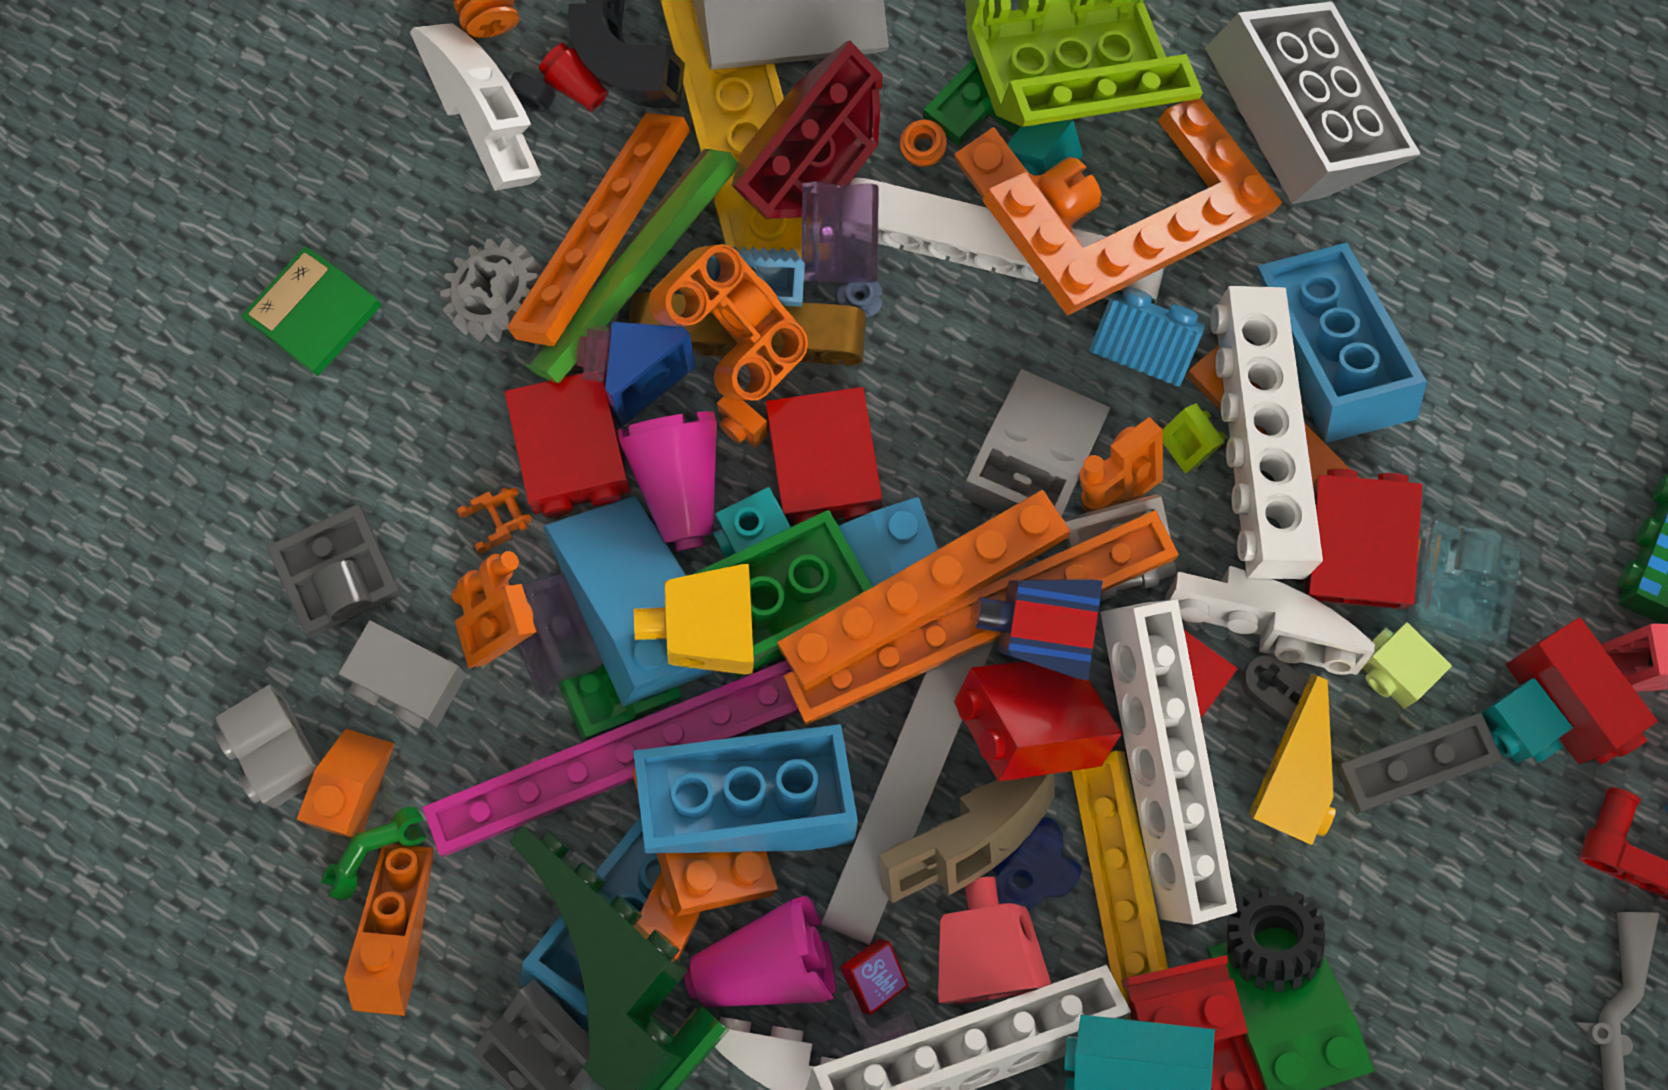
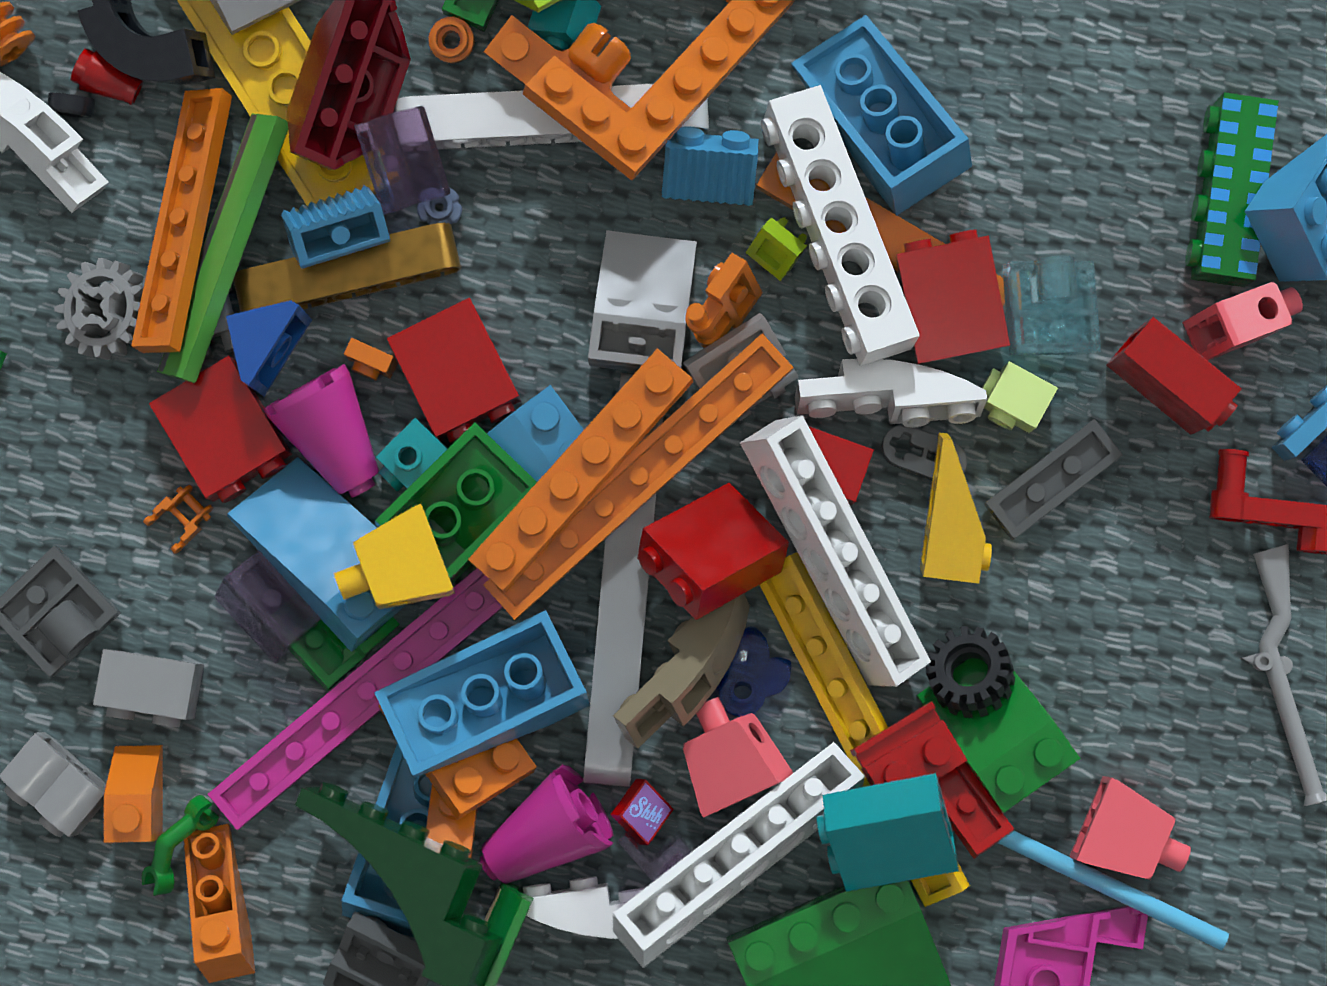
camera: 20 degrees left, 10 degrees up
(493, 610) = (209, 608): orange plate -> none
(594, 353) = (219, 348): clear pink plate -> none
(744, 308) = (340, 266): orange beam -> none
(1045, 622) = (694, 468): torso -> none
(1526, 723) = (1135, 416): teal brick -> none

